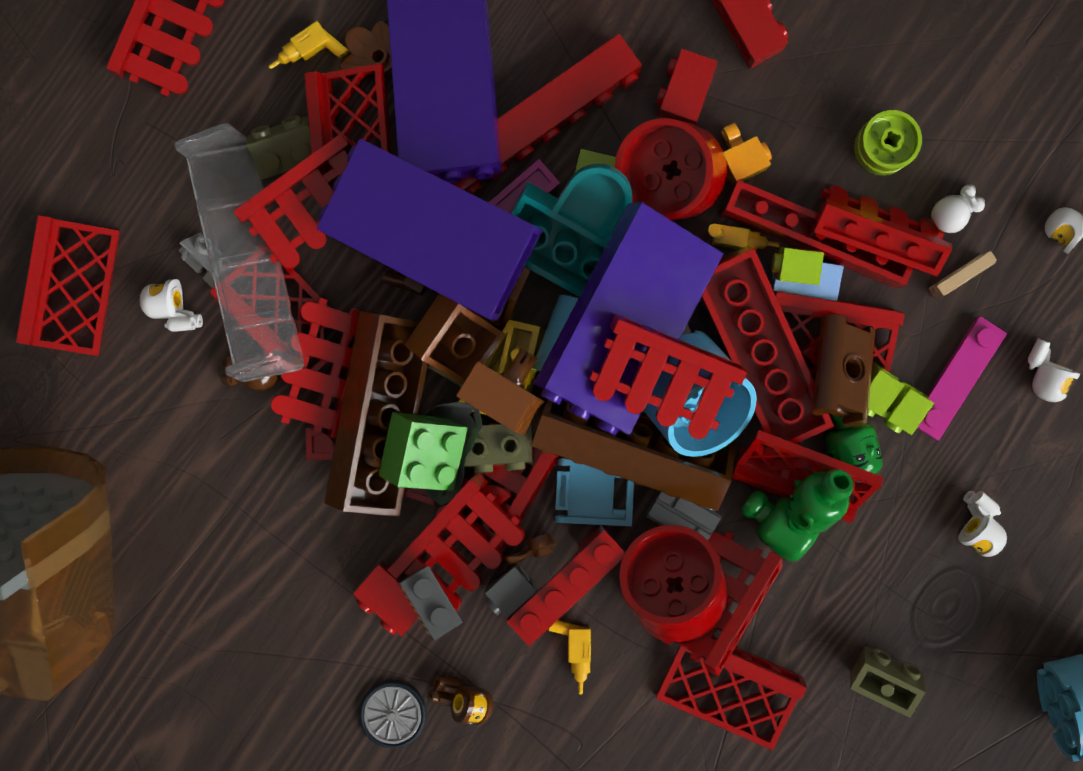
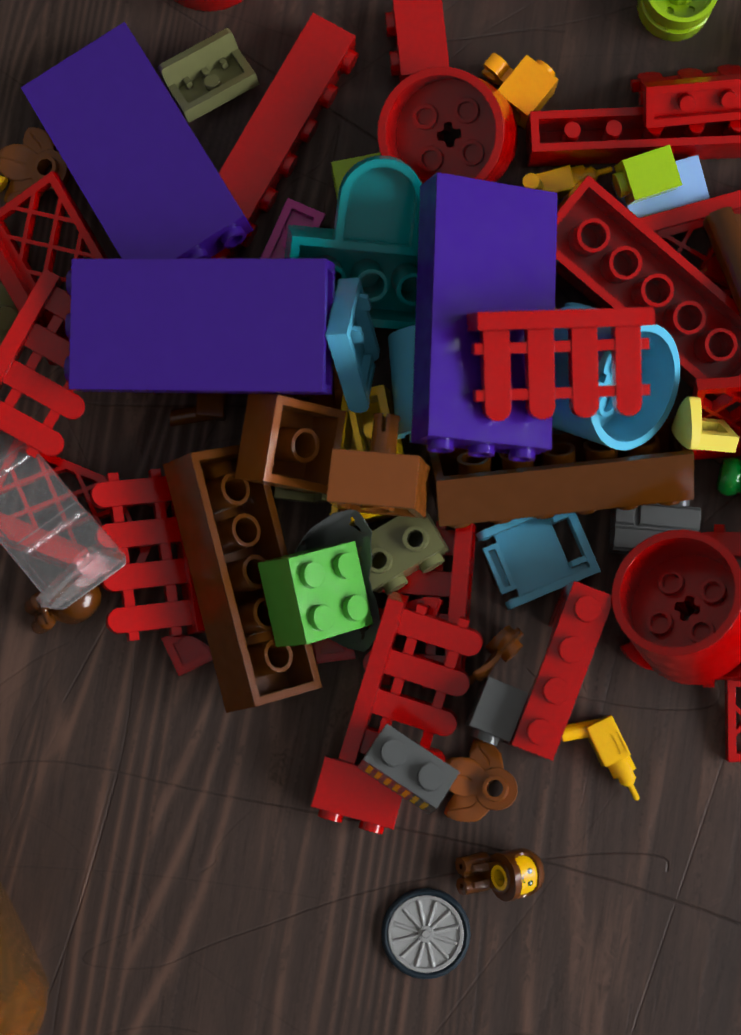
camera: 25 degrees left, 5 degrees down
(475, 626) = (471, 787): none -> dark orange plate
(524, 43) = (208, 75): none -> olive bracket
(530, 290) = (353, 342): none -> medium azure container
(747, 468) = (700, 432): none -> light yellow tile

